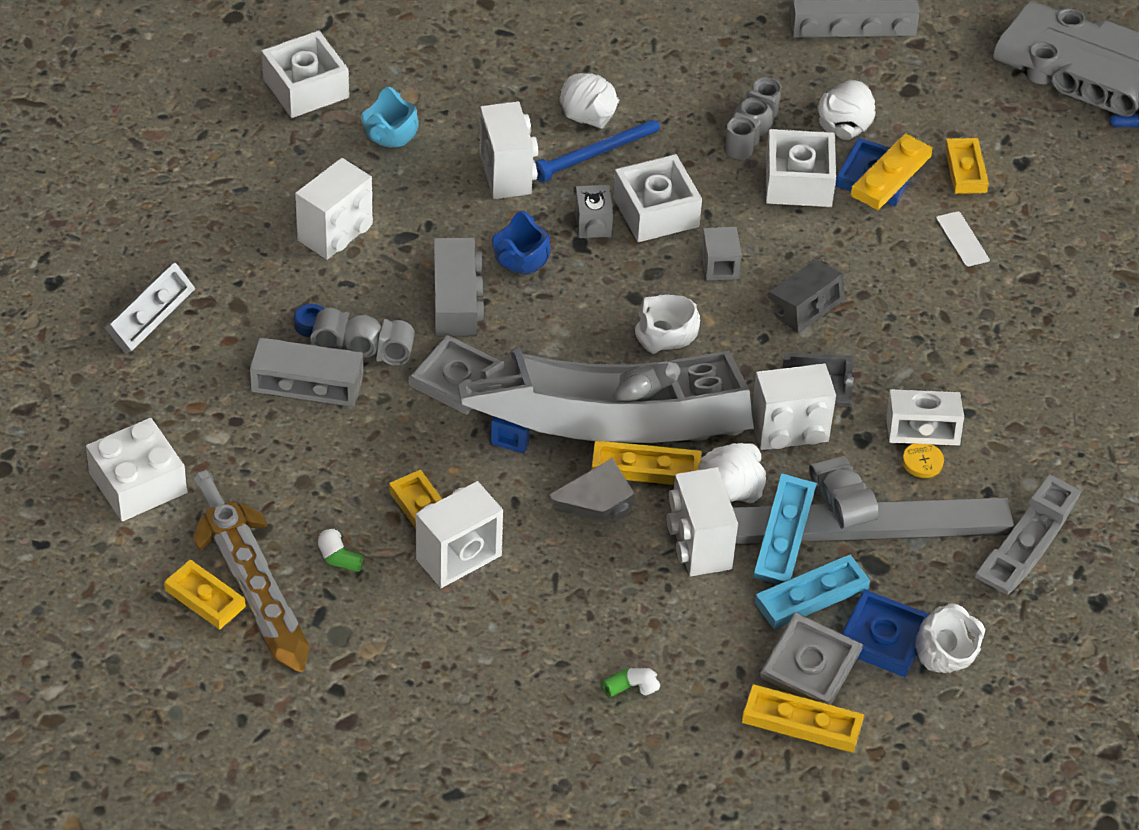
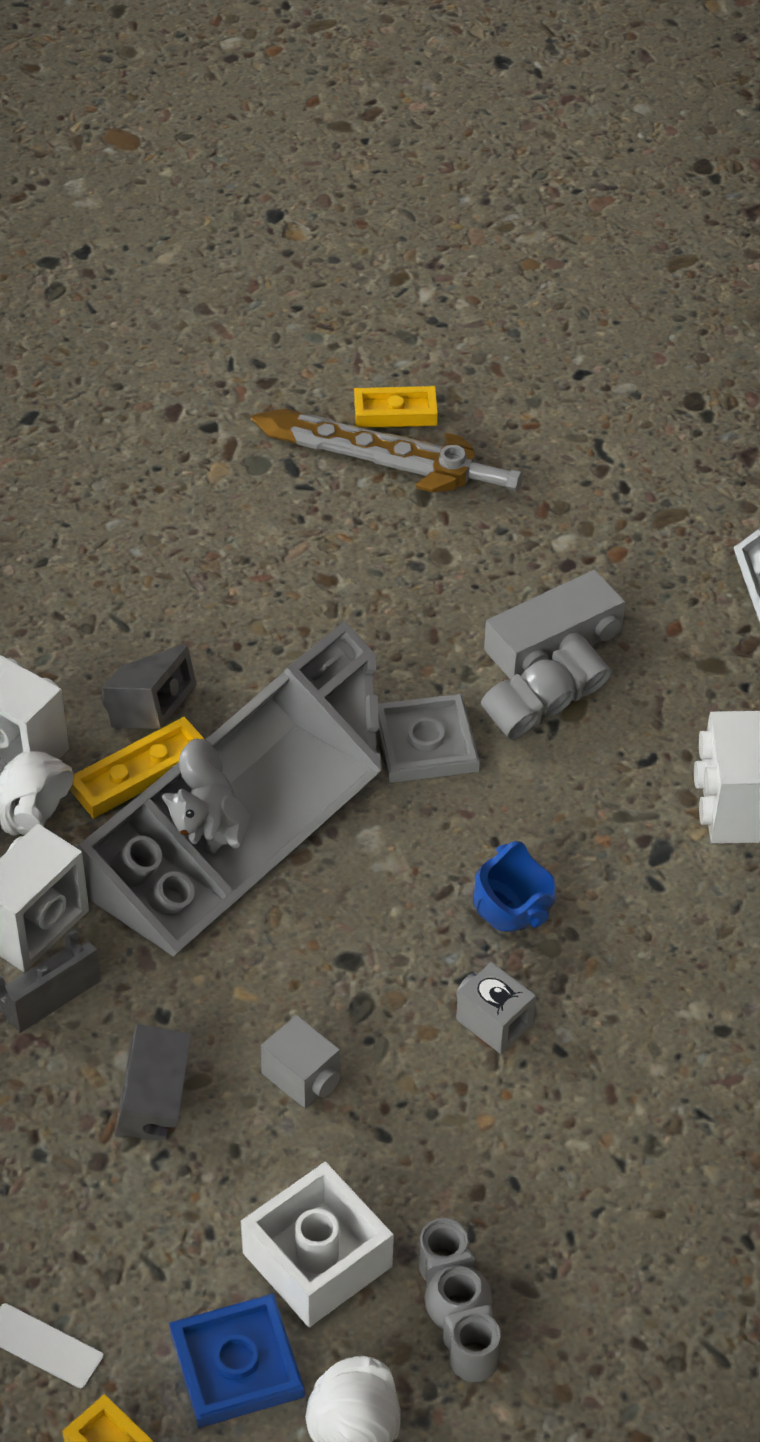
camera: 140 degrees right, 0 degrees up
(136, 469) = (576, 446): white brick -> none
(305, 318) = (626, 692): blue tile -> none
(335, 553) = (331, 507): arm -> none
(413, 494) = (305, 588): yellow plate -> none
(457, 287) = (530, 809): light grey brick -> none
(459, 534) = (230, 556): white brick -> none
(507, 150) = (662, 982): white brick -> none
(546, 169) = (614, 1029): blue bar -> none
(588, 99) = (672, 1152): white hair -> none
(657, 198) = (437, 1062): white brick -> none
(668, 324) = (263, 912): white hair -> none
(891, 171) = (204, 1347): yellow plate -> none

